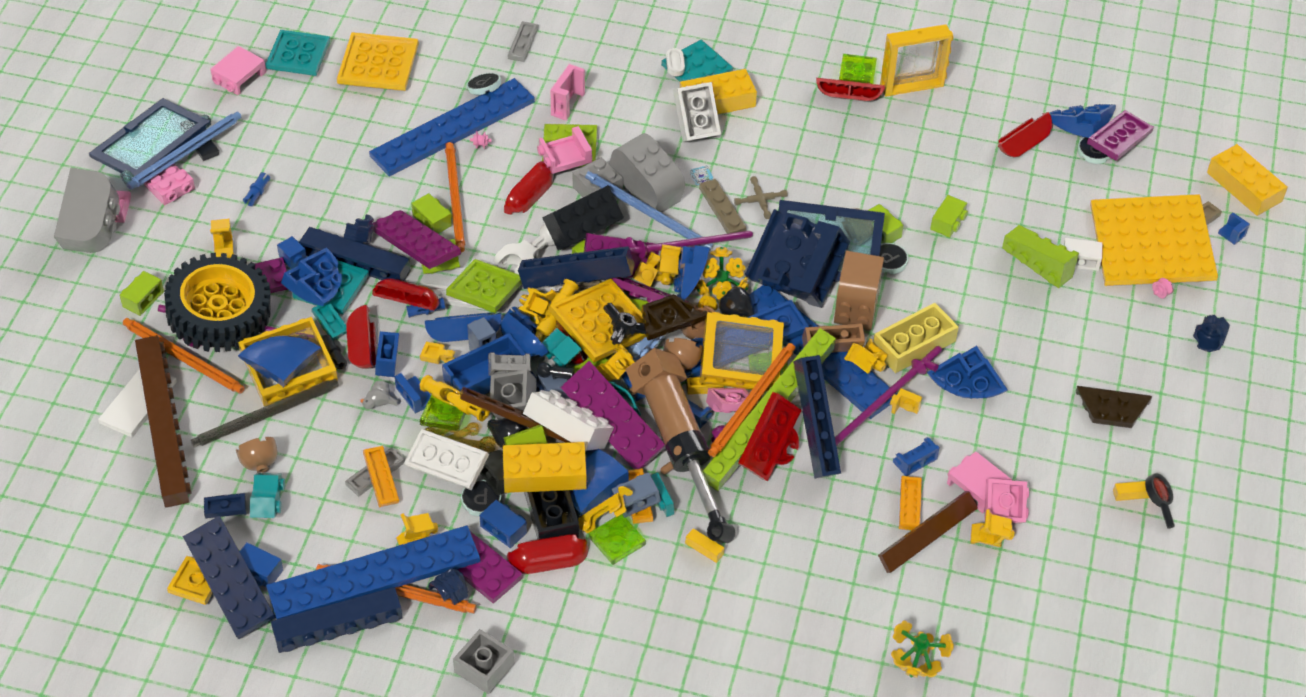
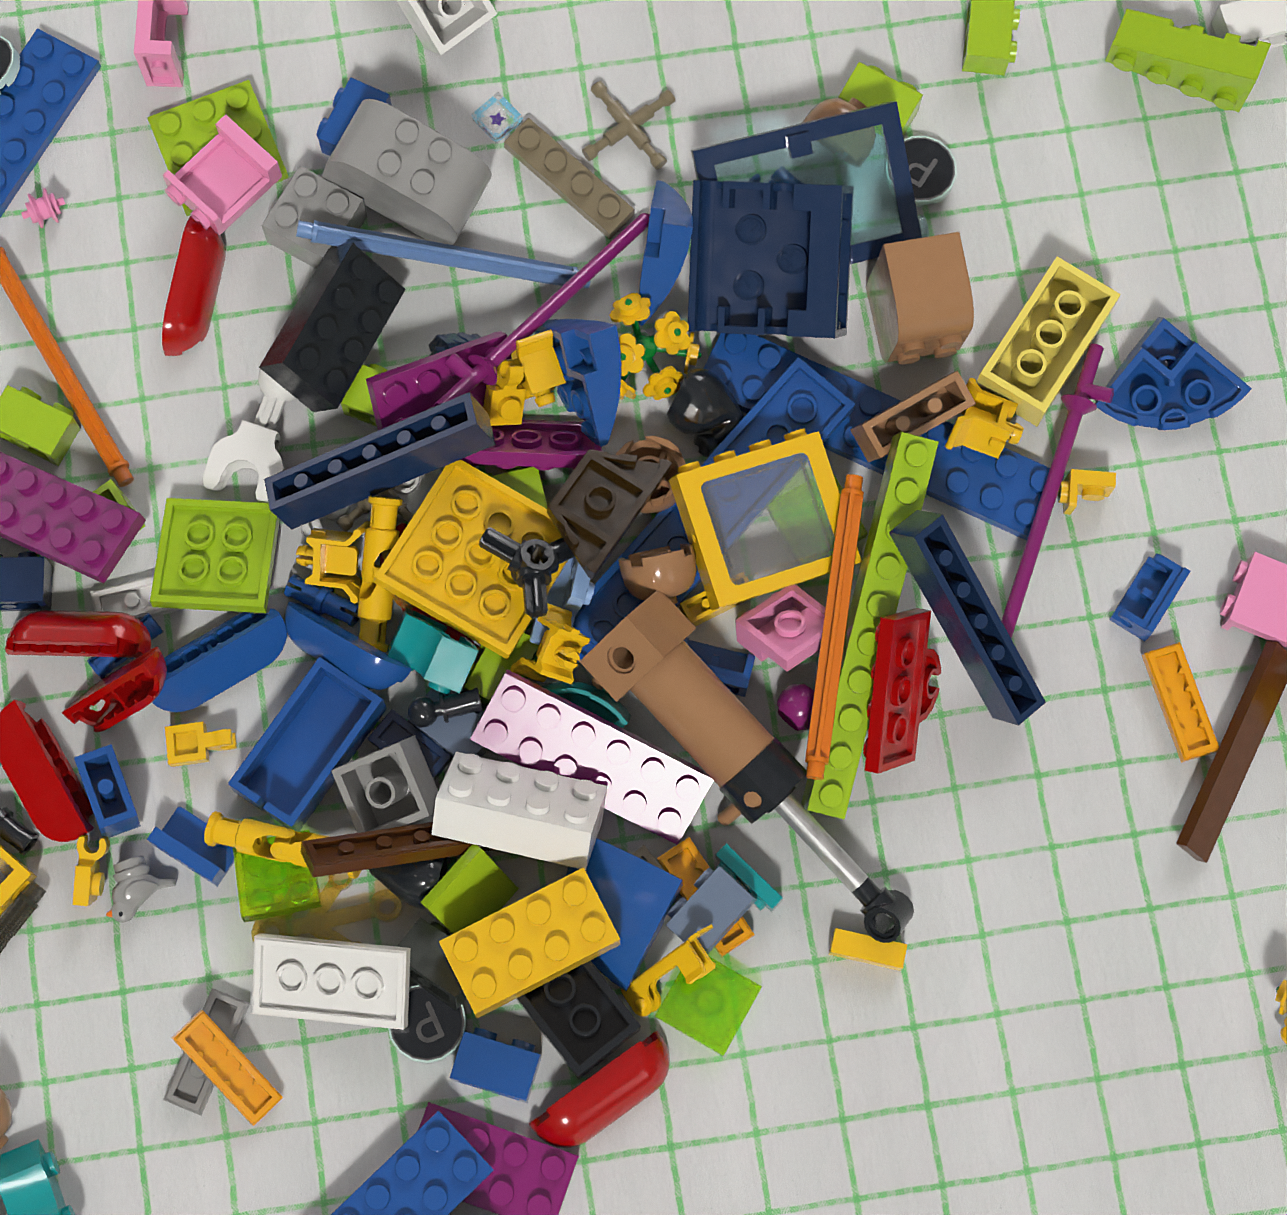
camera: 25 degrees left, 25 degrees up
(360, 382) = (88, 880): none -> yellow plate
(415, 314) = (123, 691): none -> red brick
(416, 528) = (351, 1161): yellow piece -> none
(480, 333) = (267, 683): sand blue brick -> none
(507, 363) = (355, 735): light grey hinge -> none
(707, 301) = (642, 420): yellow tile -> none
(747, 239) = (666, 244): none -> blue brick

